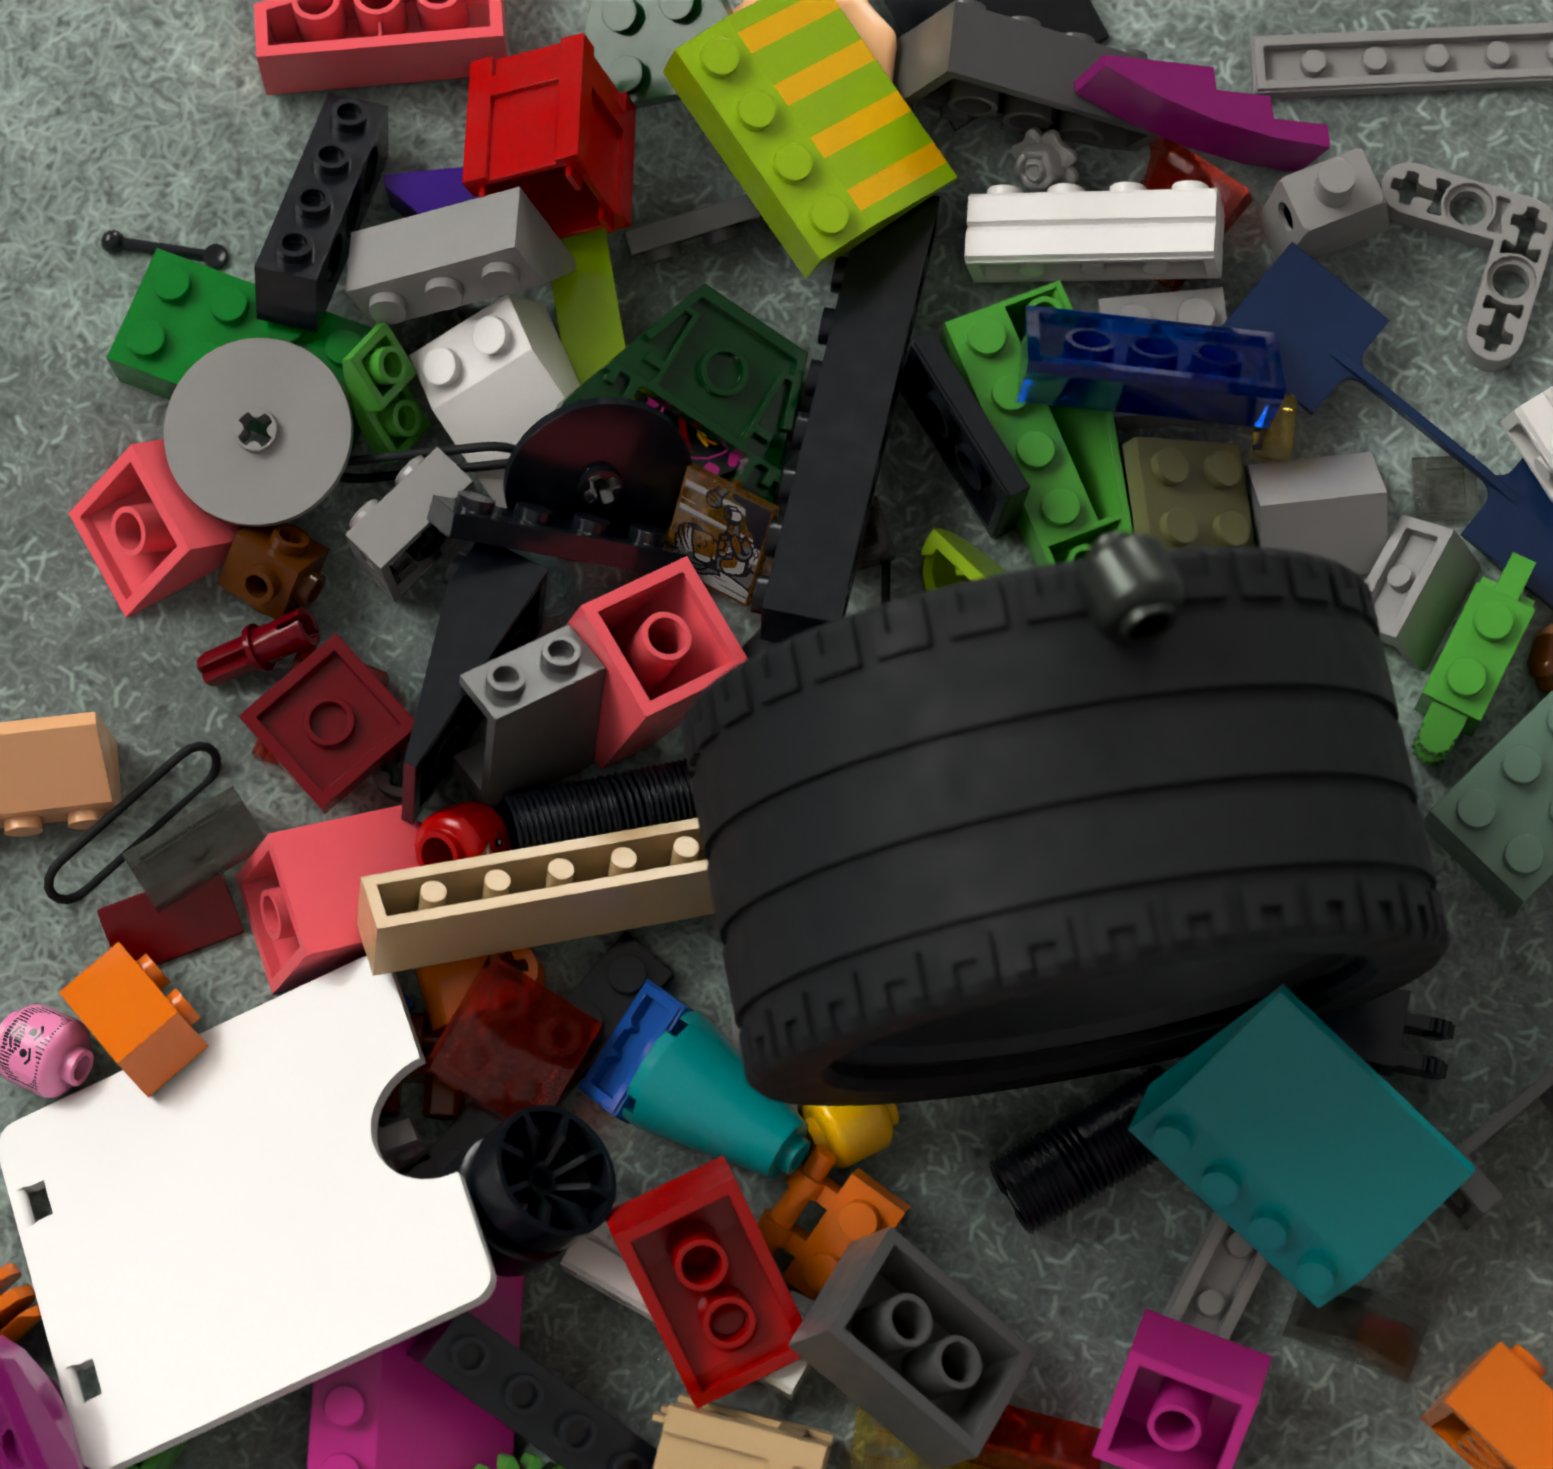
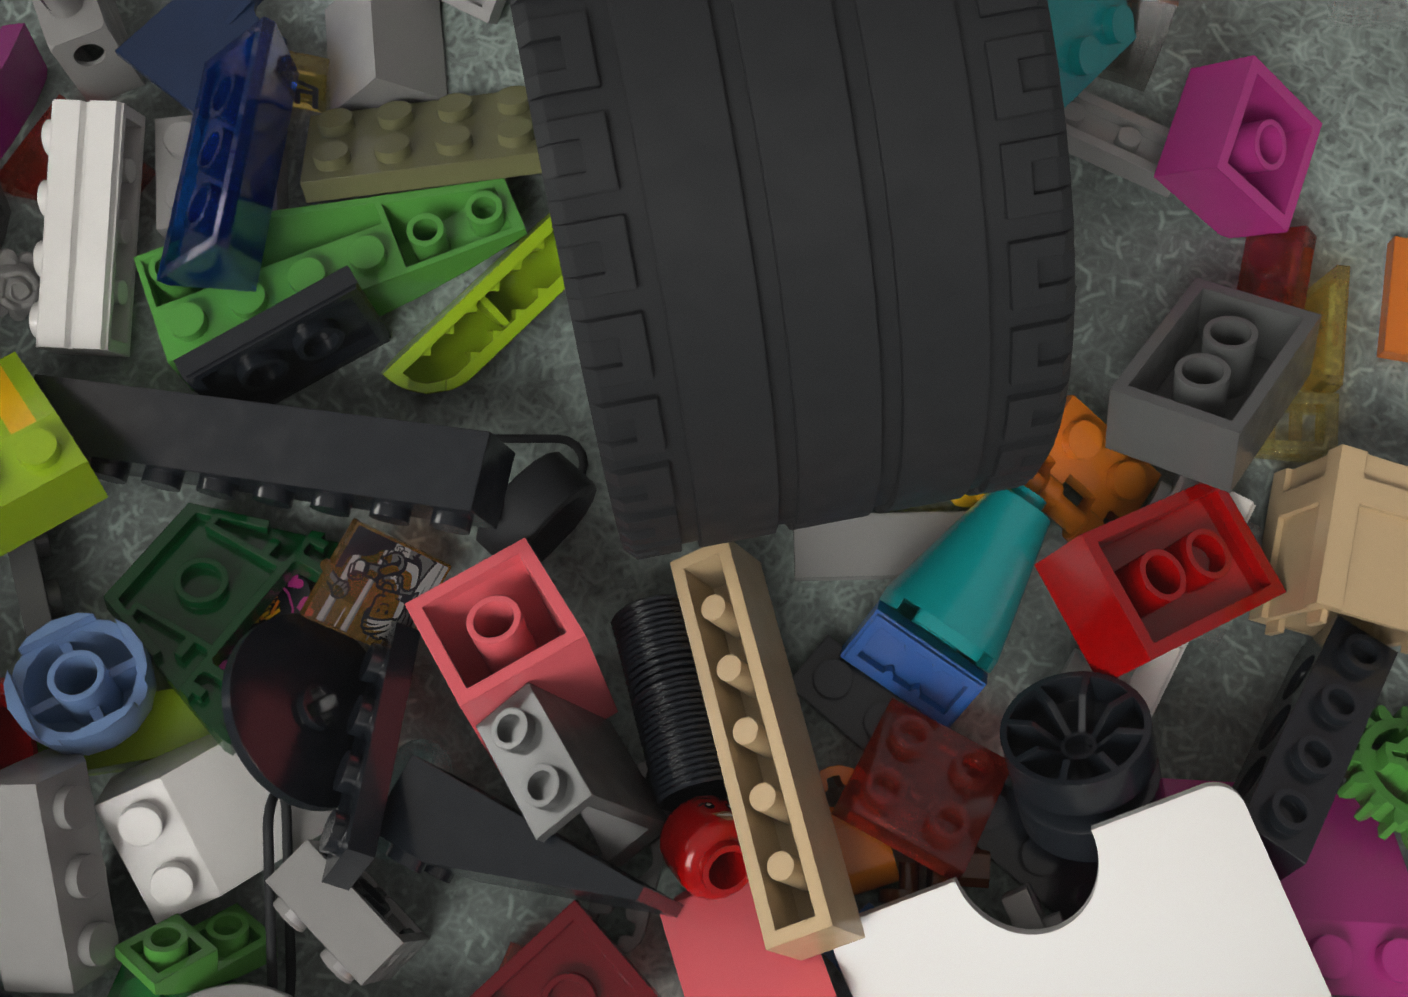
camera: 90 degrees left, 0 degrees up
(618, 273) = (81, 684): none -> medium blue cylinder

